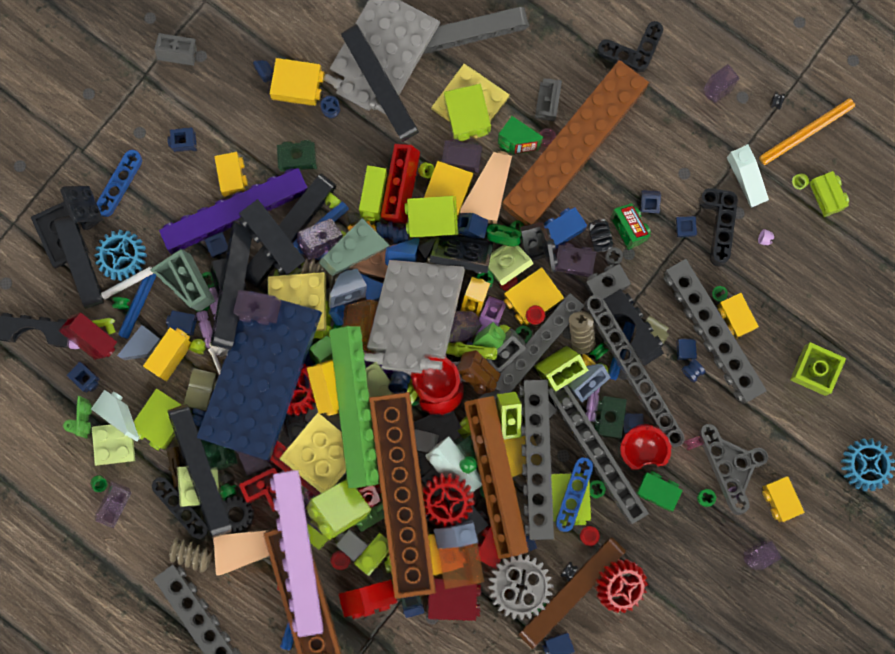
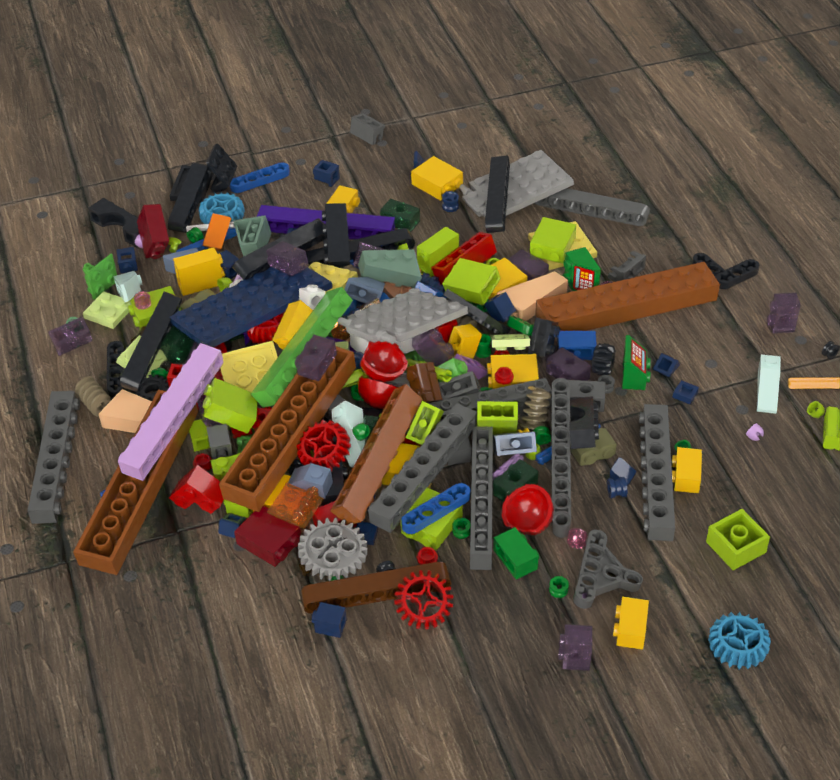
camera: 35 degrees right, 35 degrees down
(143, 291) = (216, 231): none -> orange slope
(149, 420) = (142, 304): none -> clear pink bush
(318, 344) = (311, 295): none -> white brick
(389, 413) = (316, 357): none -> clear purple brick
(719, 227) = (728, 395): black beam -> none

